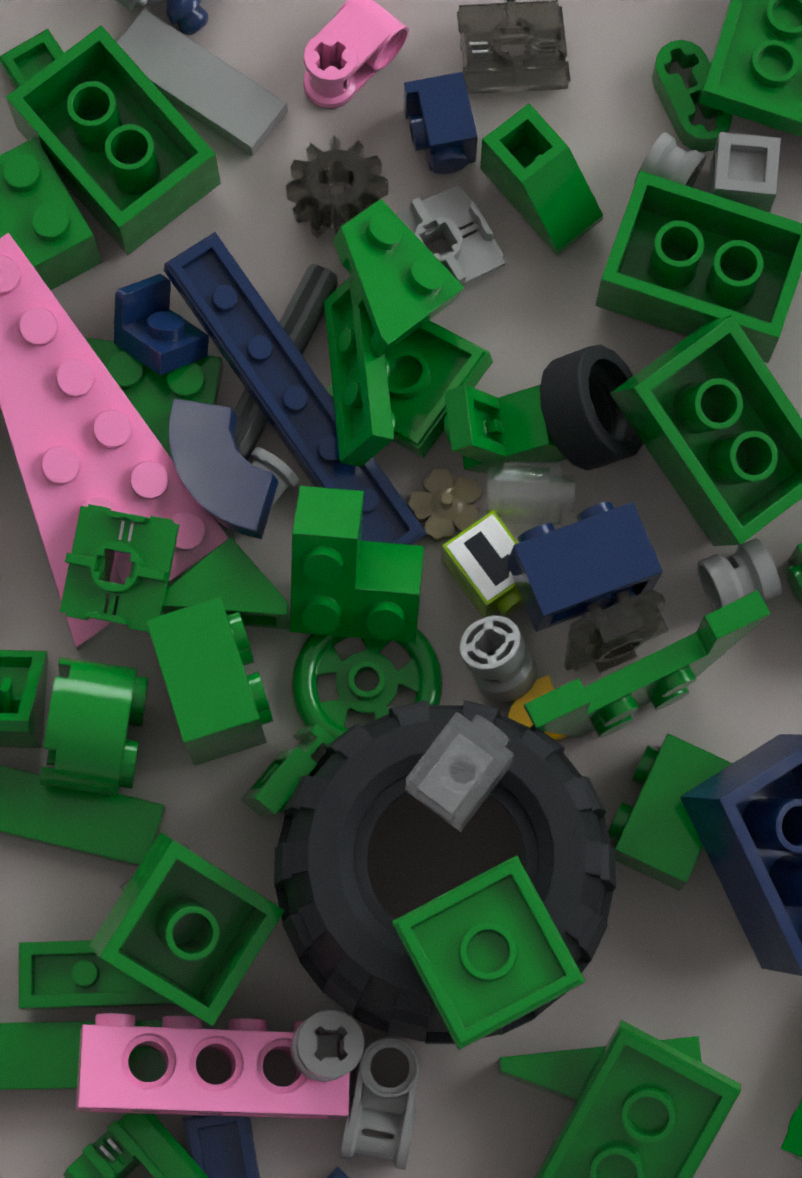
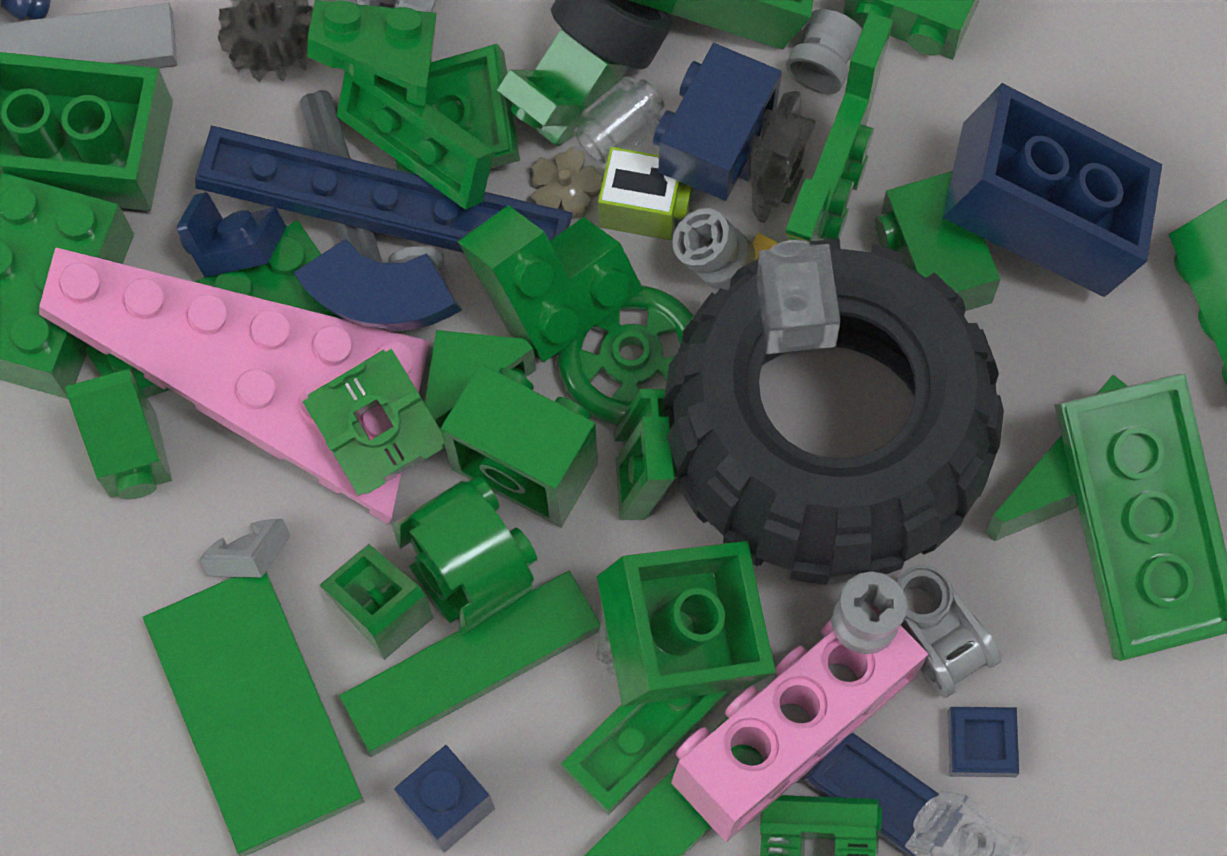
camera: 40 degrees left, 5 degrees down
(488, 952) = (939, 409): green plate -> none

